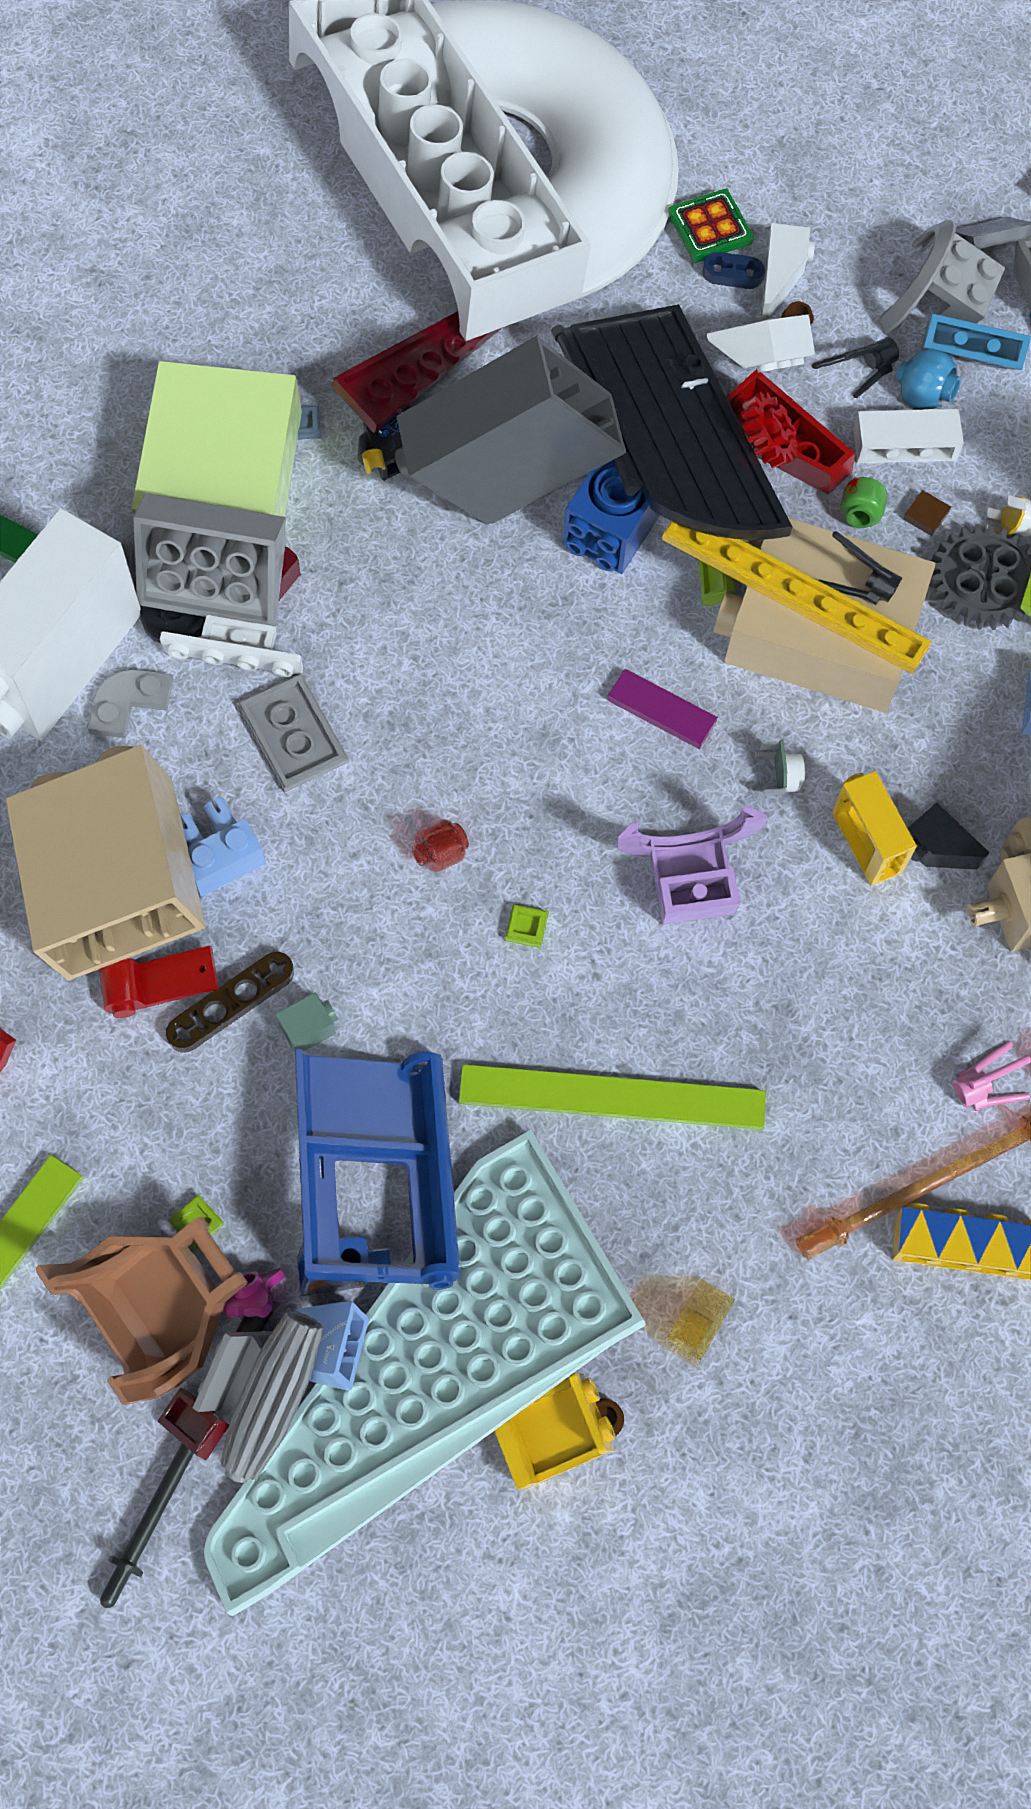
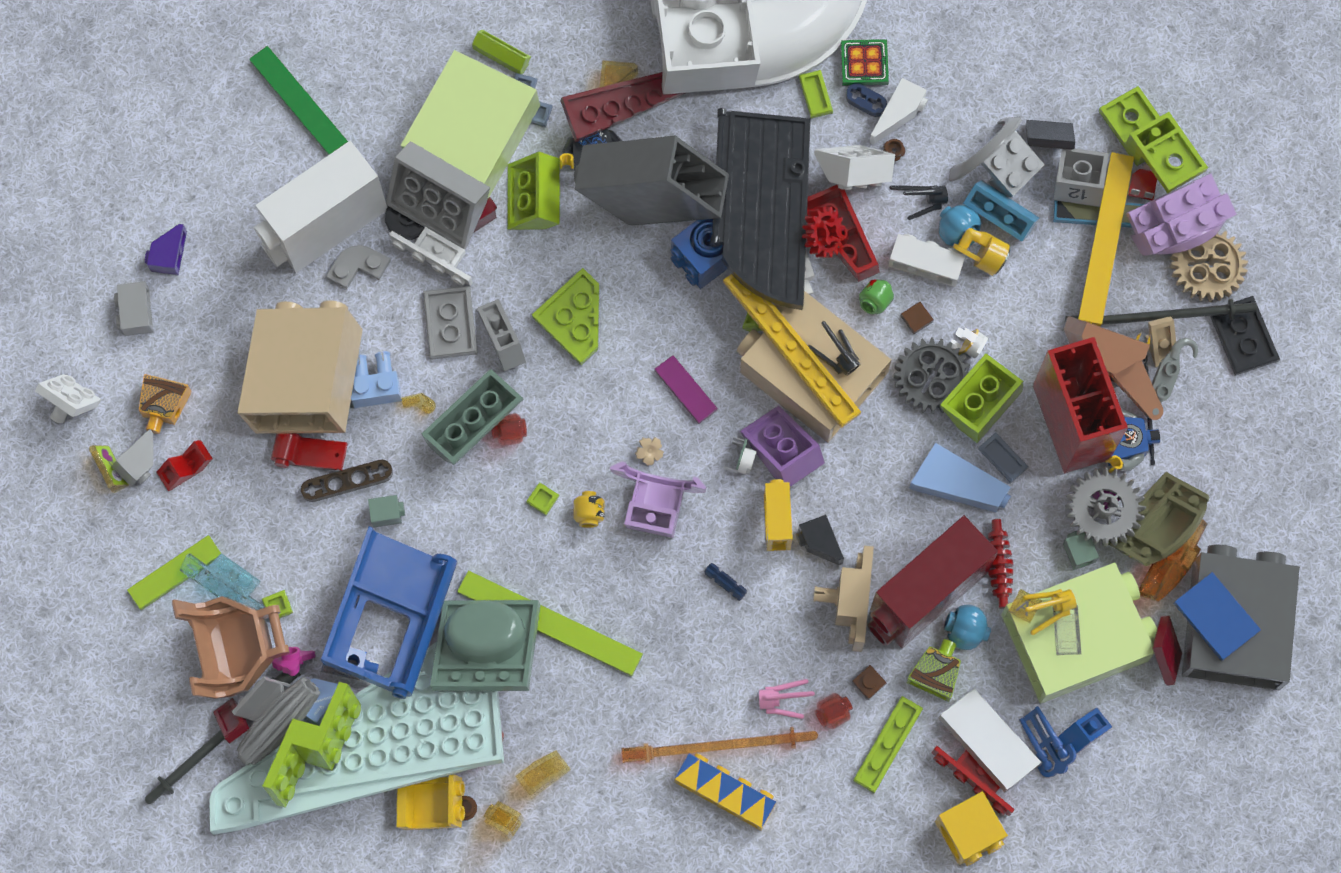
camera: 25 degrees right, 5 degrees up
(97, 1211) = (223, 579): none -> clear light blue bracket
(218, 356) = (501, 52): none -> lime piece
(294, 853) = (419, 400): none -> clear yellow arm
(340, 522) = (534, 192): none -> lime slope
(340, 1413) = (312, 745): none -> lime bracket
(376, 722) = (502, 335): none -> light grey slope
(381, 846) = (471, 417): none -> sand green slope
(389, 331) = (616, 72): none -> clear yellow slope
(465, 665) = (573, 316): none -> lime plate
(539, 1162) = (485, 645): none -> sand green piece
(601, 915) = (588, 509): none -> yellow head
(650, 806) = (650, 450): none -> tan plant
(663, 282) = (815, 94): none -> lime tile
(673, 1413) = (503, 820): none -> clear yellow slope
(833, 734) = (783, 446): none -> medium lavender slope
(835, 947) = (725, 581): none -> dark blue axle
(989, 397) = (990, 256): none -> yellow piece

